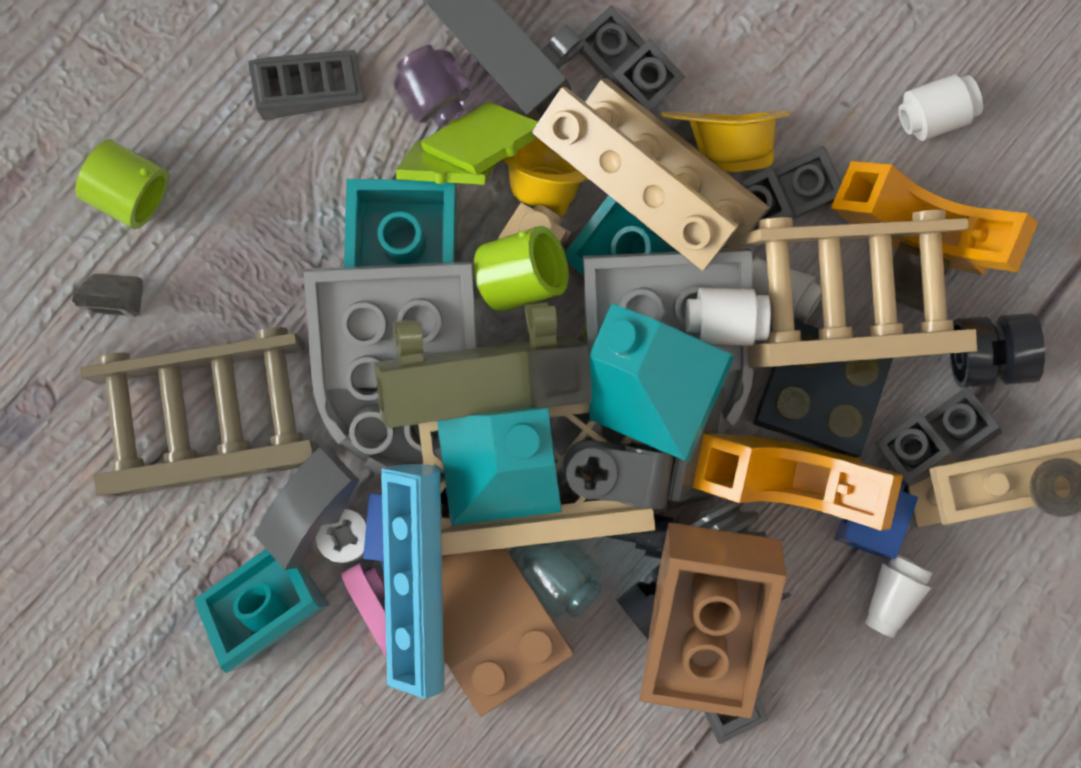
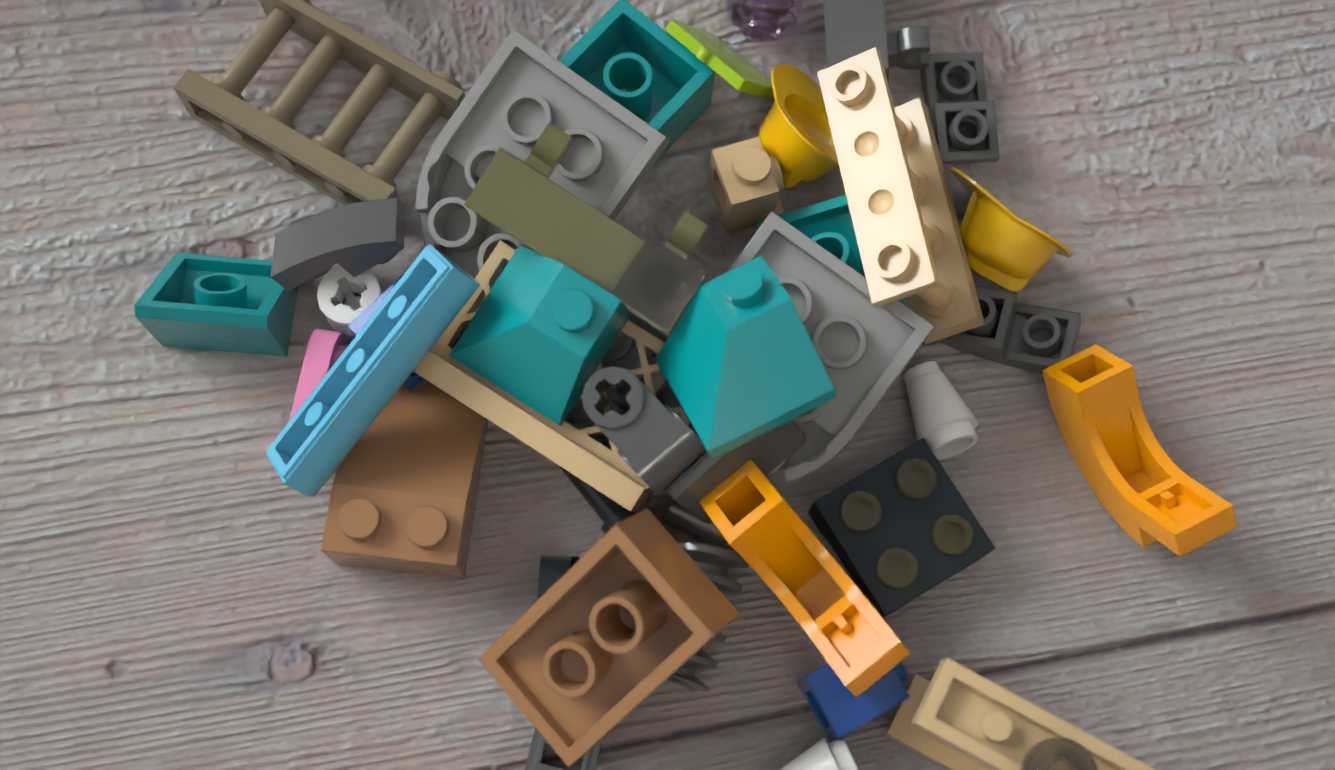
camera: 30 degrees right, 10 degrees down
(481, 138) = (768, 59): lime piece -> none
(521, 269) = (708, 180): lime piece -> none
(563, 577) = (511, 496): clear light blue head -> none
(728, 316) = (862, 363): white brick -> none
(836, 339) = (947, 476): tan fence -> none
(909, 276) = (1072, 497): clear smoke plate -> none
(939, 437) = (1005, 661): dark grey slope -> none
(940, 106) = (1221, 367): white brick -> none
(1005, 350) = (1119, 641): black wheel -> none

